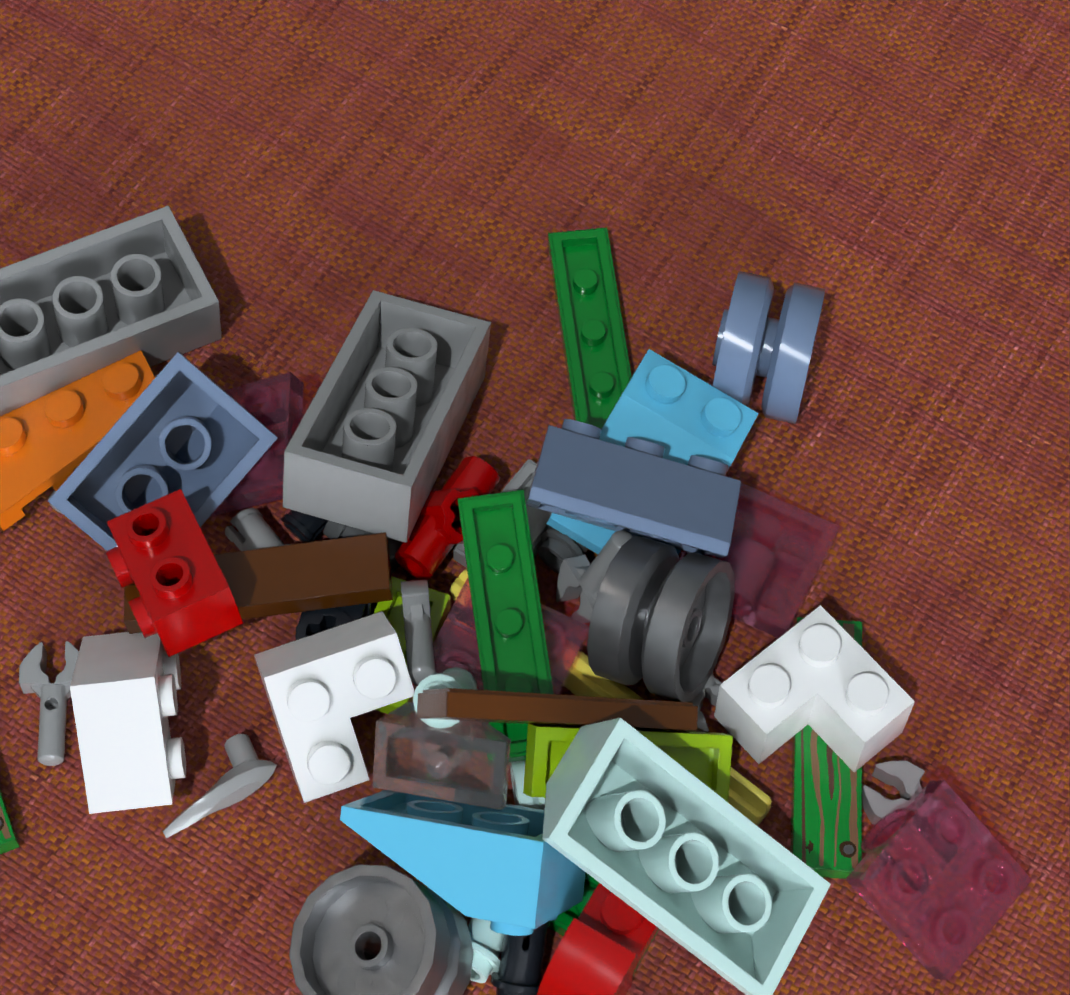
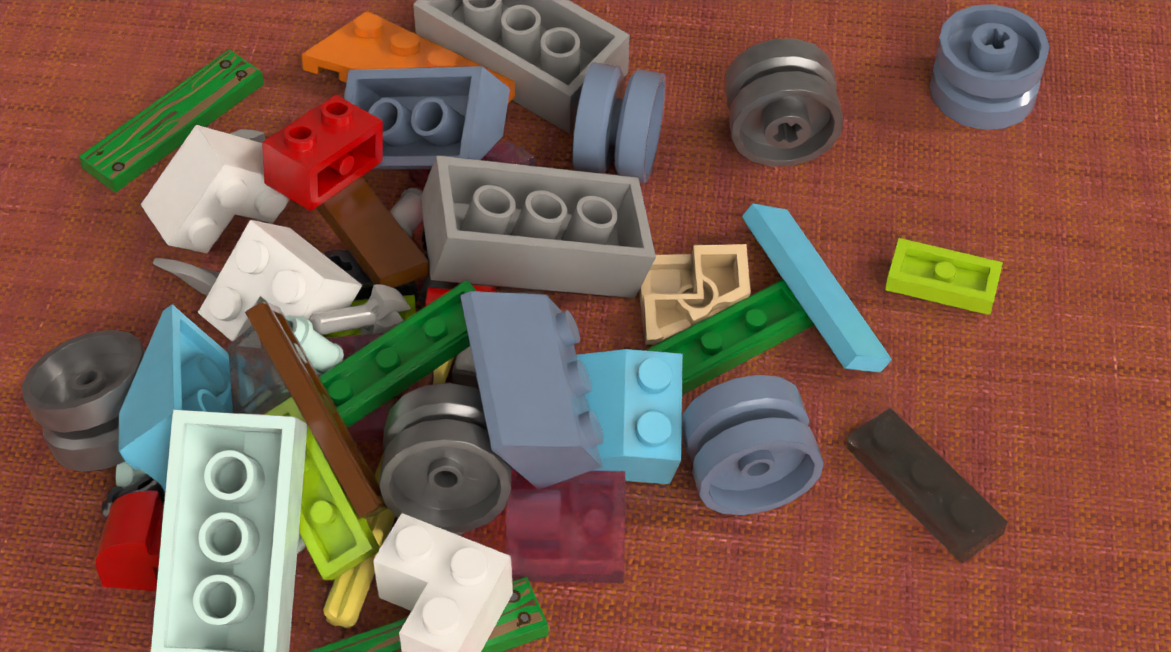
camera: 65 degrees right, 10 degrees down
(281, 272) = (618, 121): none -> sand blue wheel
(344, 116) = (783, 102): none -> flat silver wheel
(524, 319) = (692, 288): none -> tan slope
(576, 211) = (816, 289): none -> medium azure tile
(621, 100) = (944, 276): none -> lime plate
(845, 237) = (926, 485): none -> clear smoke plate

